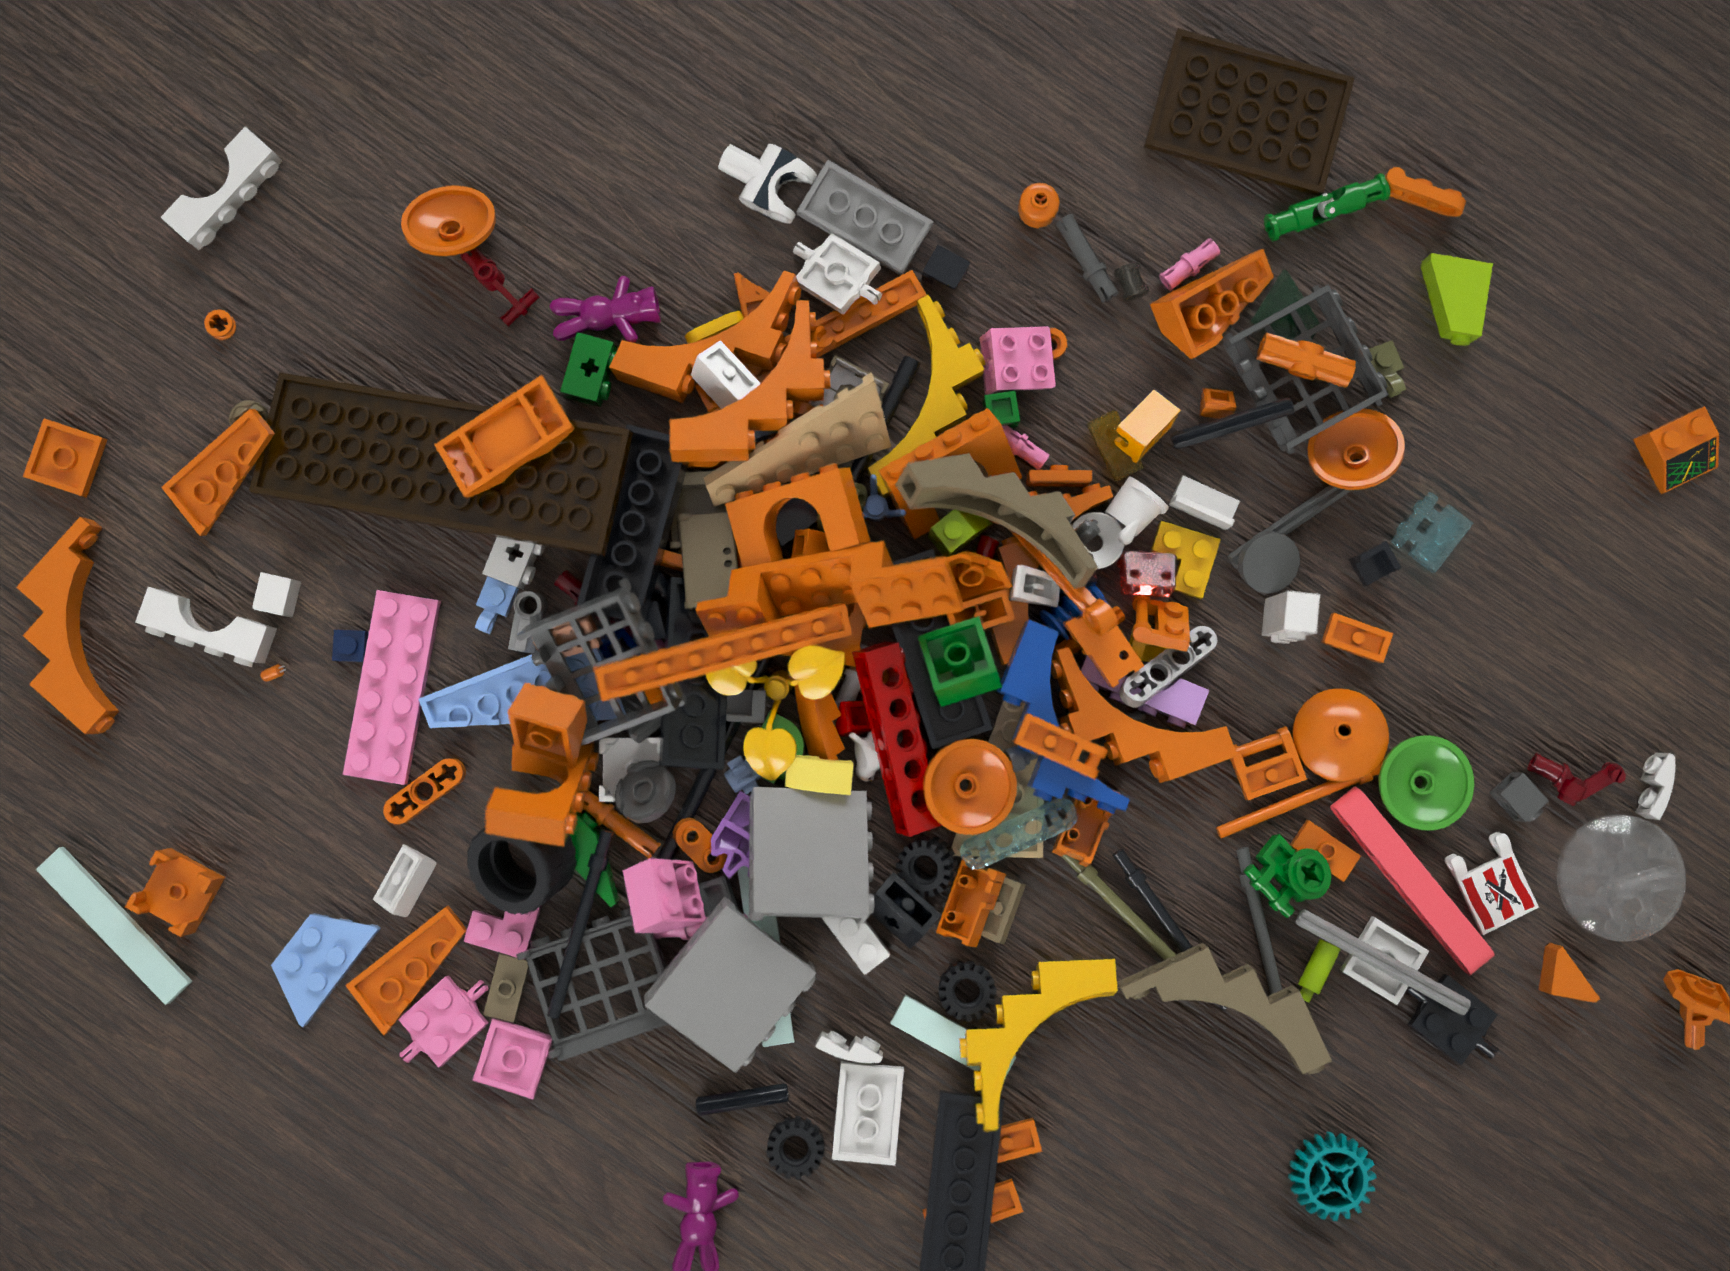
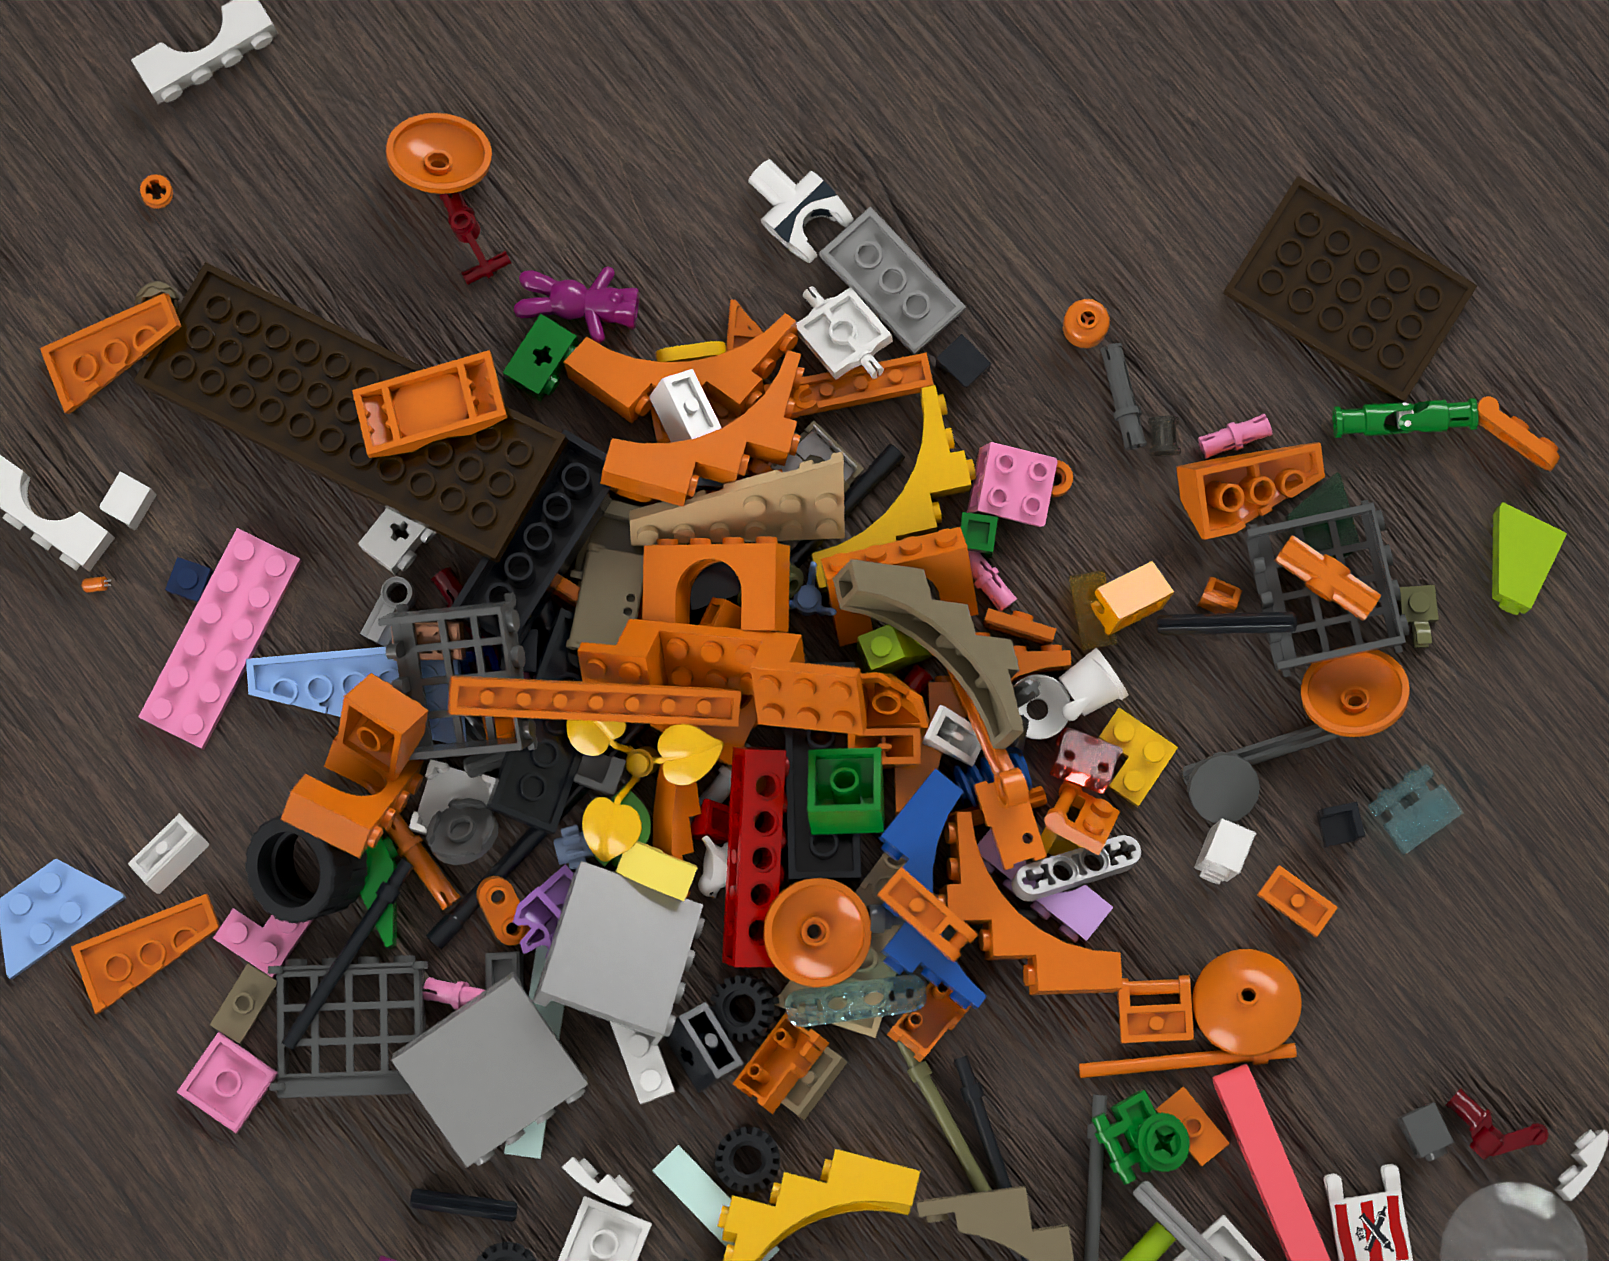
camera: 20 degrees right, 5 degrees down
(401, 798) = (199, 779): orange beam -> none
(443, 1021) = (164, 1019): bright pink plate -> none
(494, 599) = (362, 577): light blue plate -> none
(663, 895) = (448, 950): bright pink slope -> none
(1204, 503) = (1172, 702): white panel -> none
(1445, 785) = (1349, 1078): bright green dish -> none

